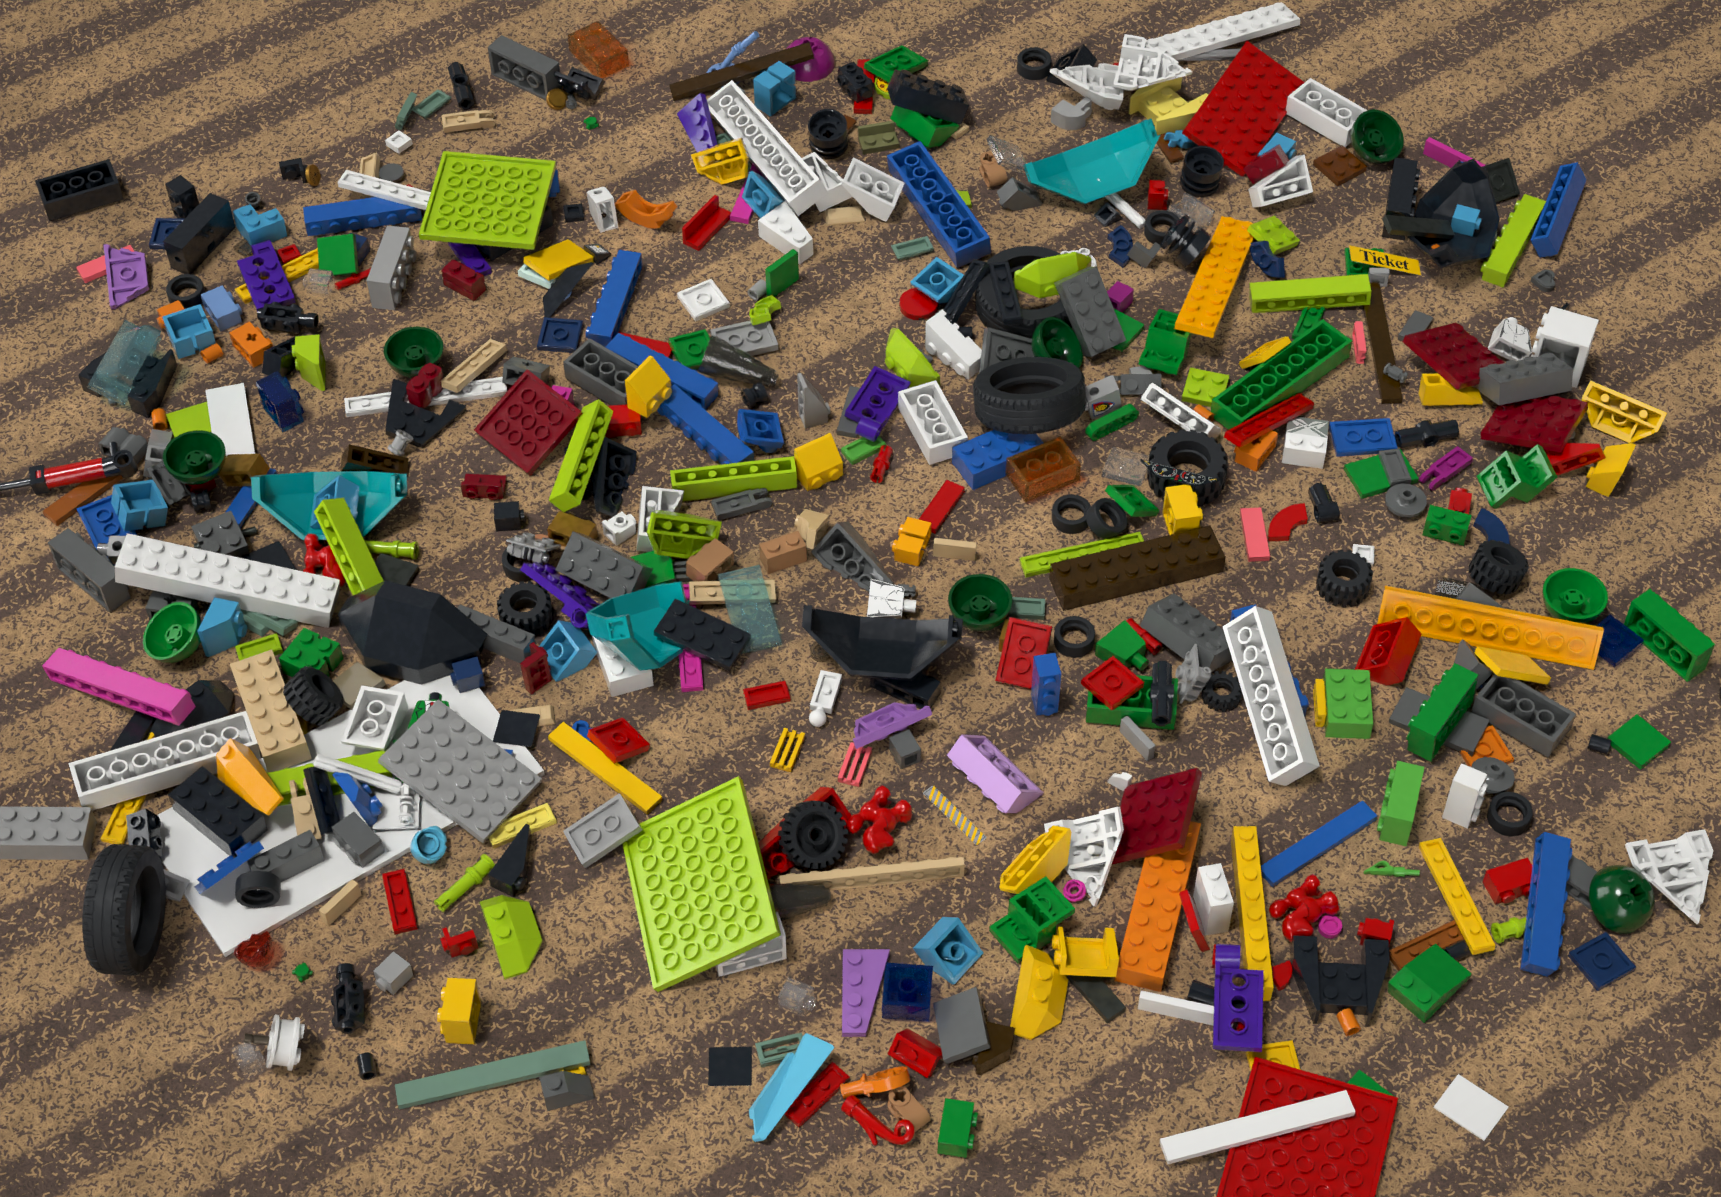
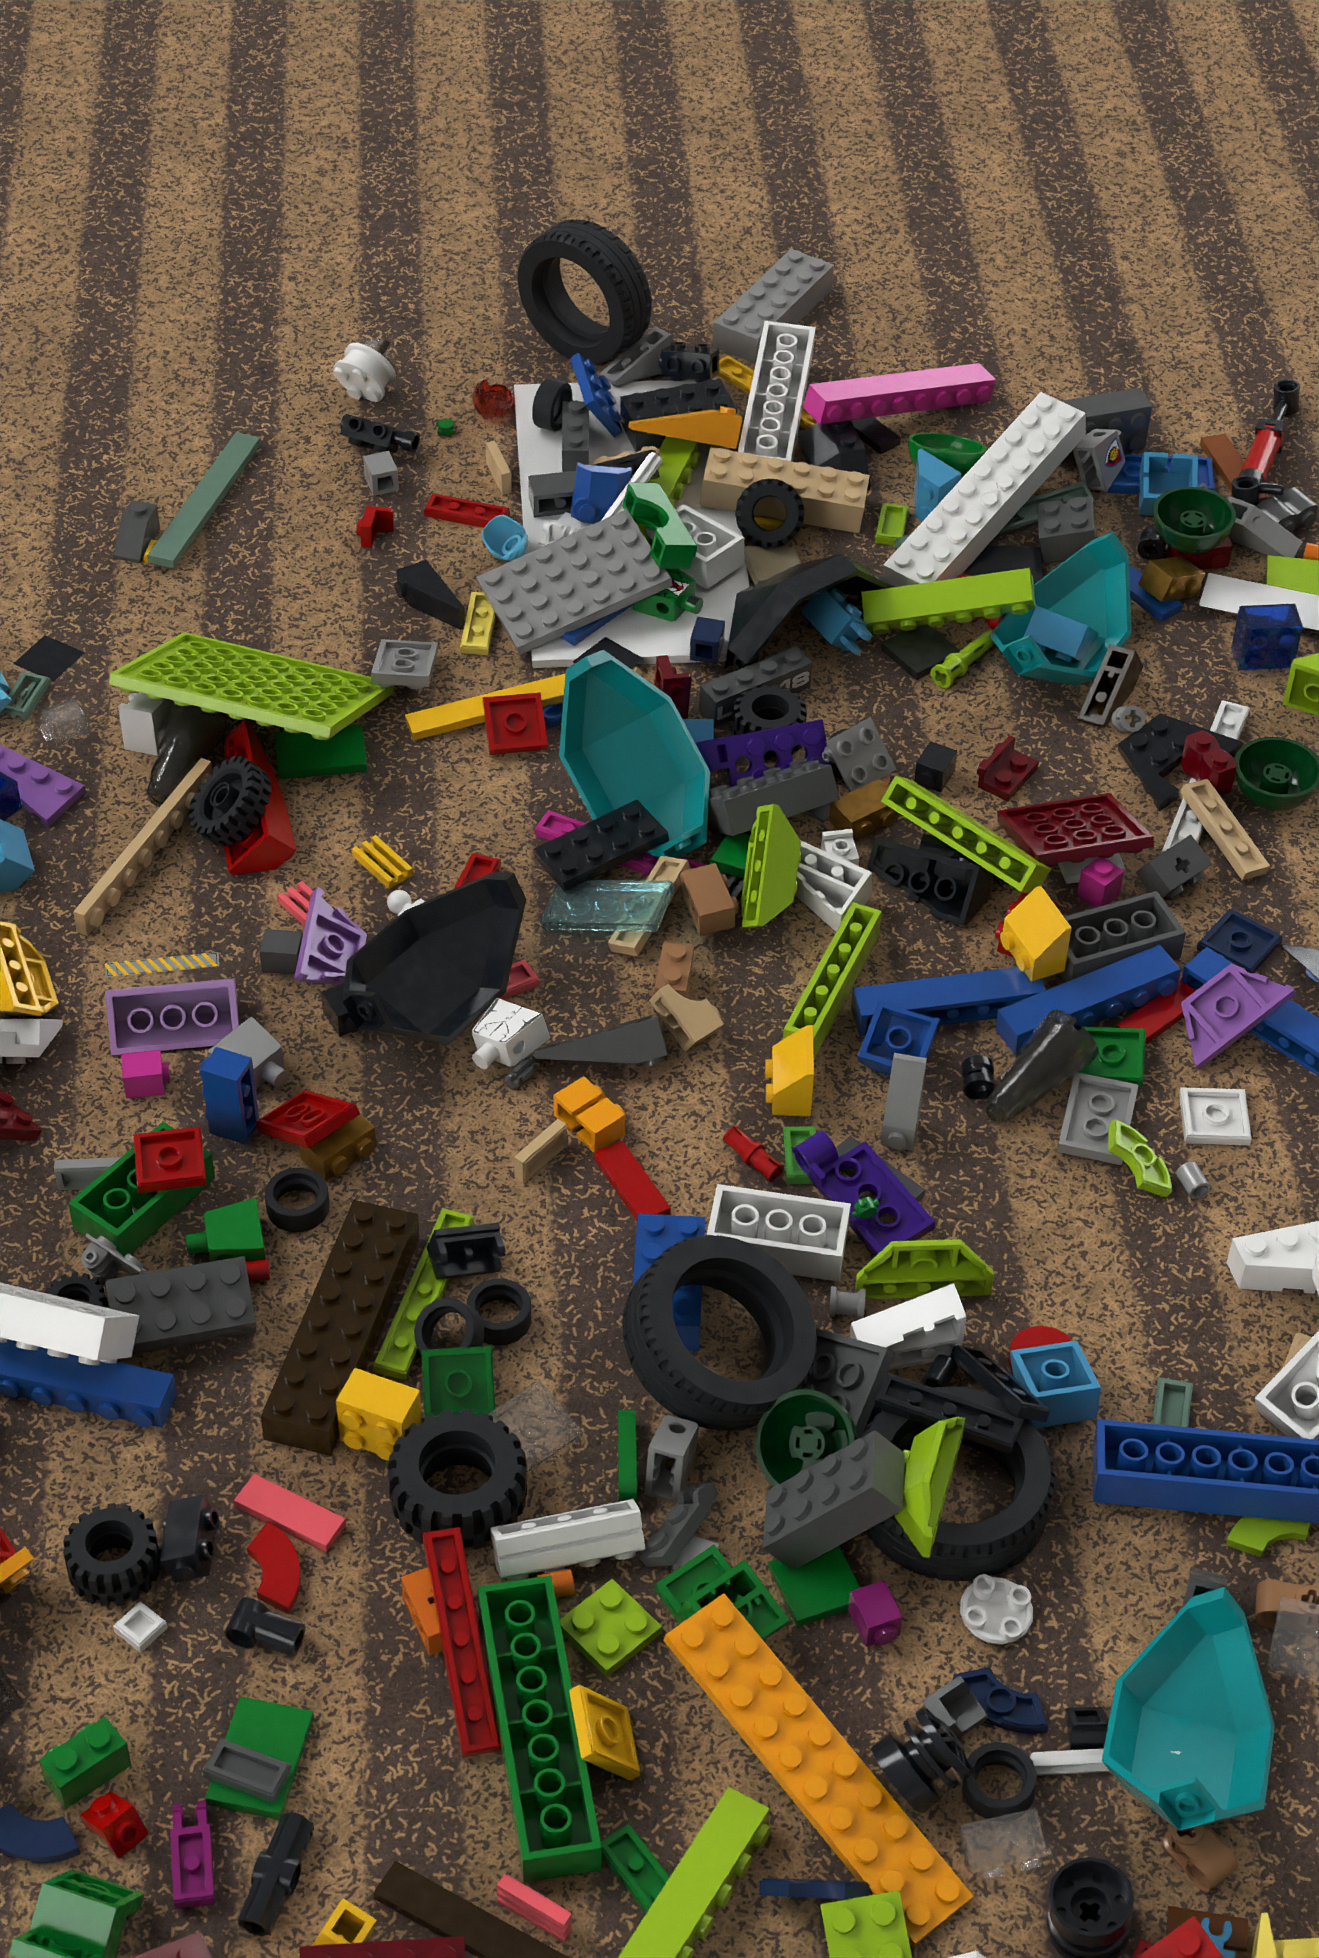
camera: 120 degrees right, 5 degrees down
(311, 651) = (839, 536): green piece -> none
(366, 1066) = (298, 428): black hinge -> none
(407, 707) = (651, 507): none -> green arch
(459, 1010) = (285, 487): yellow brick -> none
(472, 876) = (443, 562): lime pin -> none
(512, 933) = (354, 560): lime wedge -> none
(633, 305) = (1229, 1009): none -> medium lavender wing
(741, 503) = (793, 978): dark grey hinge -> none
(782, 273) = (1193, 1199): green tile -> none
(884, 820) = (202, 883): red animal -> none
(891, 391) = (865, 1208): none -> green piece
(950, 383) = (847, 1302): none -> light grey bush
(980, 601) = (419, 1110): dark green piece -> none
(996, 716) = (266, 1053): none -> light grey torso
(1027, 608) = (393, 1180): sand green tile -> none
(1043, 469) = (592, 1310): clear orange brick -> none
(1048, 543) = (466, 1250): none -> black hinge
(1049, 758) = (144, 1074): none -> dark pink brick
(1120, 781) = (50, 1126): white tile -> none
(1157, 195) = (1081, 1817): red brick -> none
(1161, 693) = (102, 1190): black piece -> none
(1177, 474) = (430, 1422): black sticker -> none
(1303, 557) = (189, 1538): none -> black brick
(1305, 442) = (398, 1688): white slope -> none
(1362, 436) = (349, 1783): blue tile -> none
(1395, 373) = (425, 1909): dark grey piece -> none
(1405, 500) = (177, 1757): dark grey piece -> none

